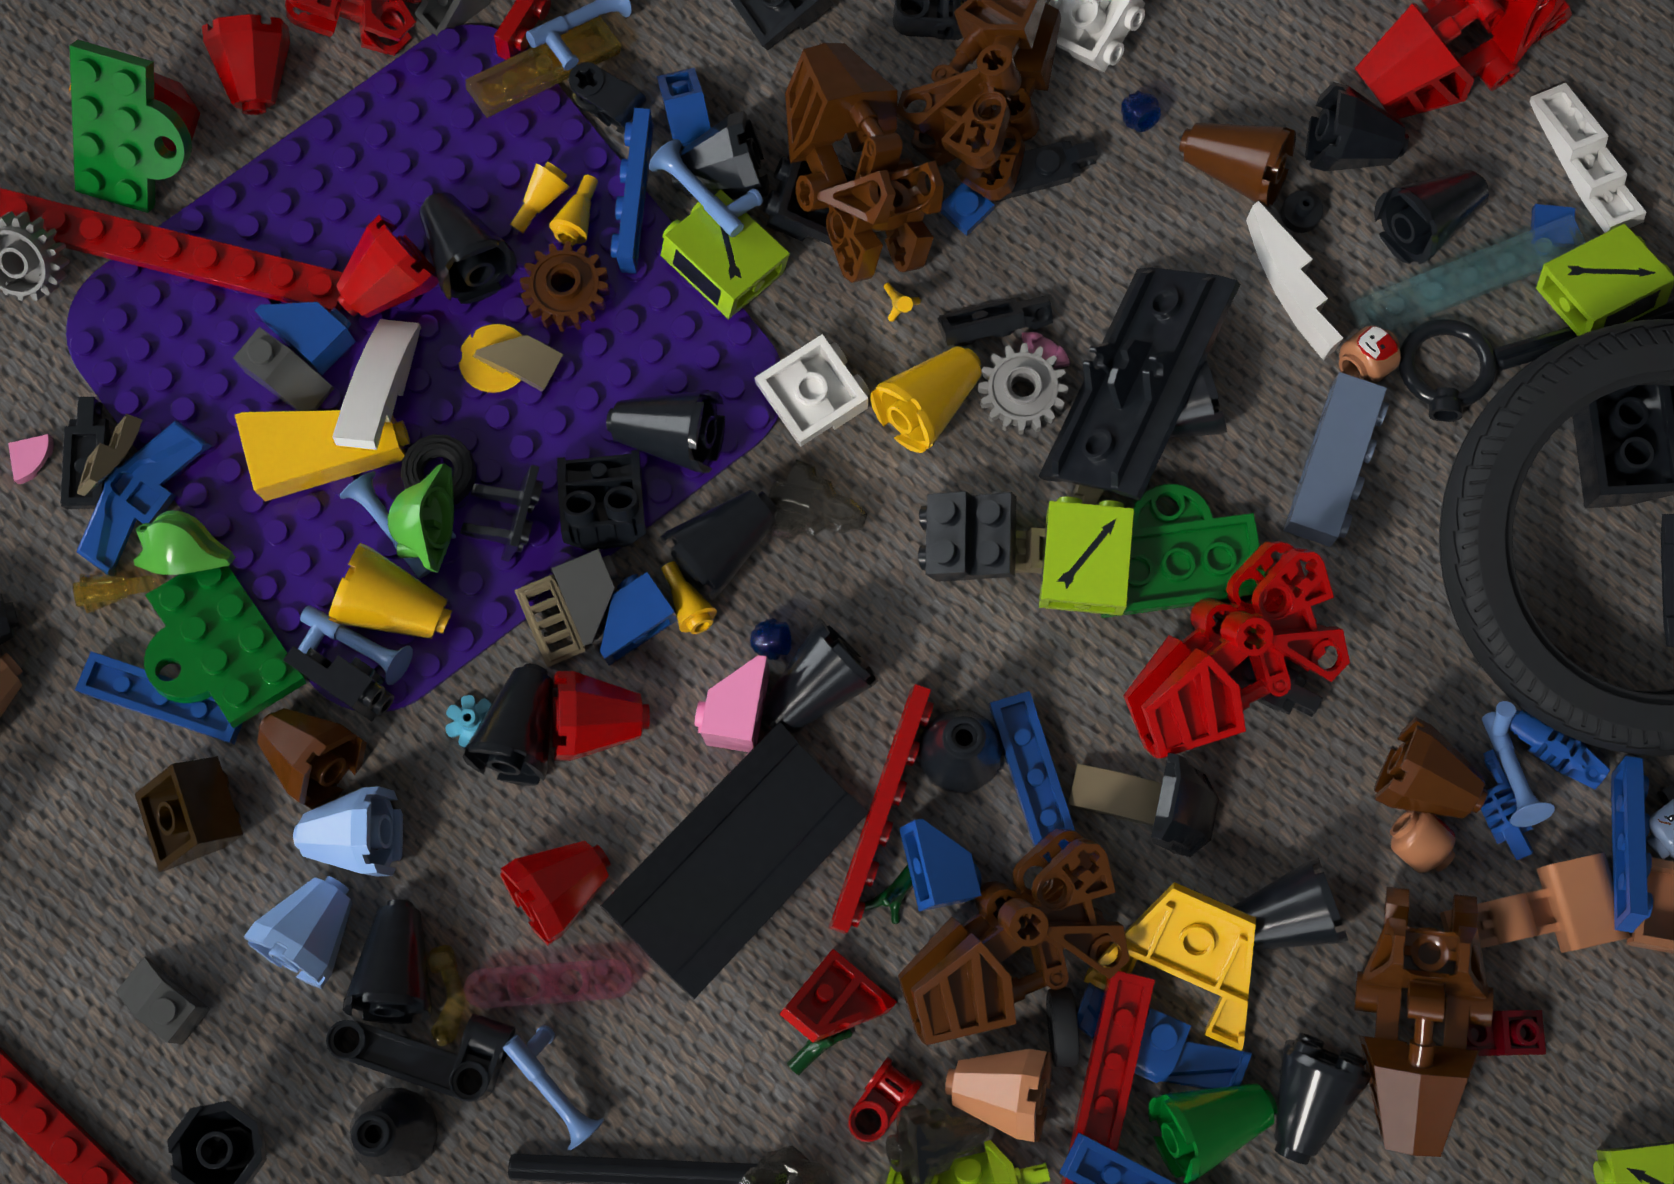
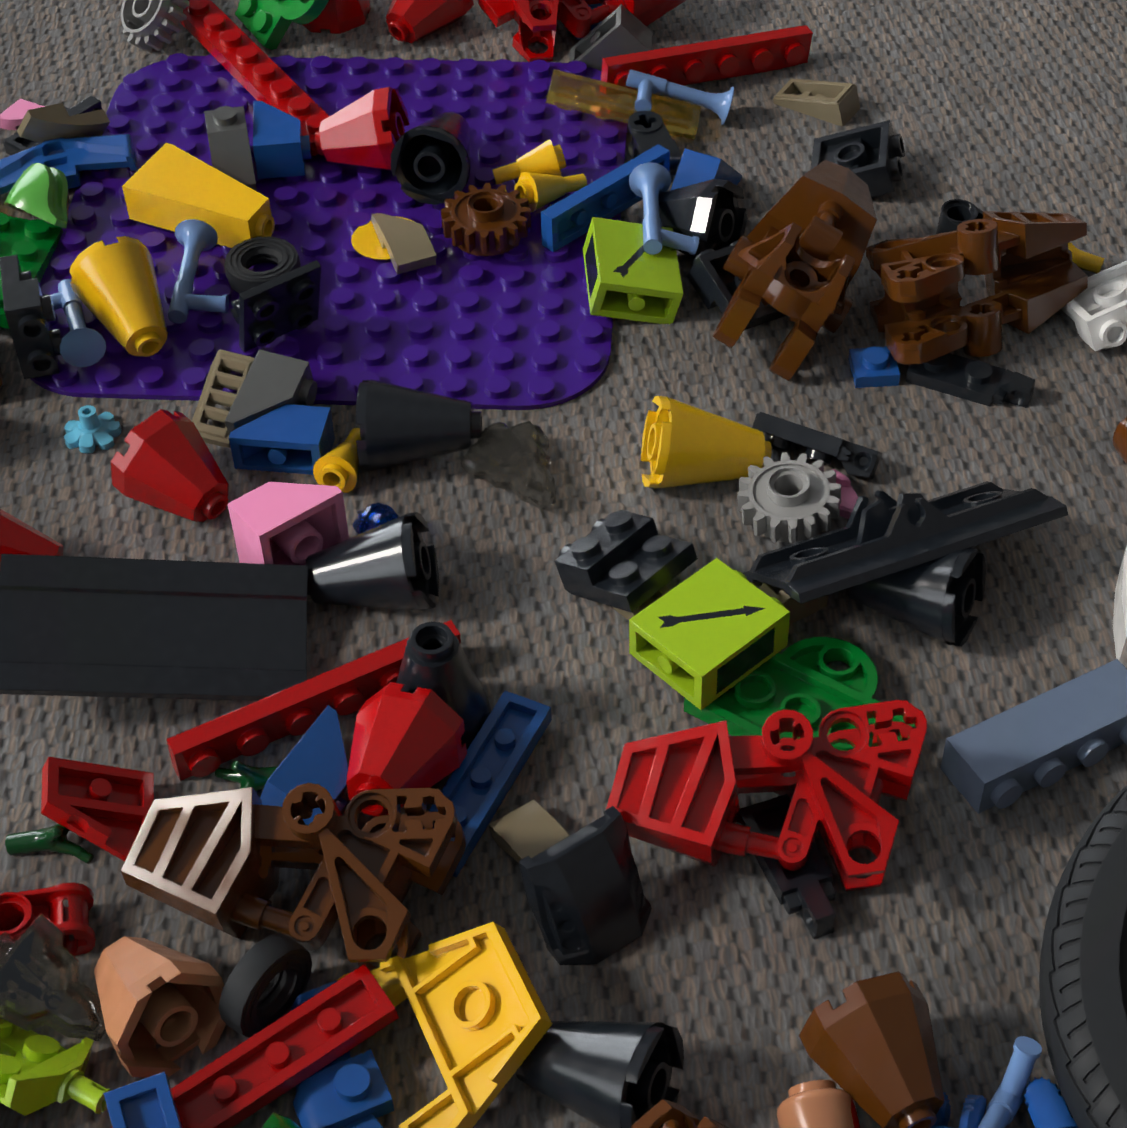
camera: 40 degrees right, 30 degrees down
(376, 383) = (272, 178): white slope -> none
(424, 518) = (214, 268): bright green hat -> none
(516, 729) = (88, 438): black cone -> none
(601, 501) = (351, 347): black slope -> none
(671, 427) = (466, 336): black cone -> none
(813, 390) = (605, 389): white plate -> none
(899, 302) = (745, 384): yellow bar -> none
(989, 815) = (403, 742): none -> red cone
(1140, 111) = (1103, 389): clear blue plate -> none

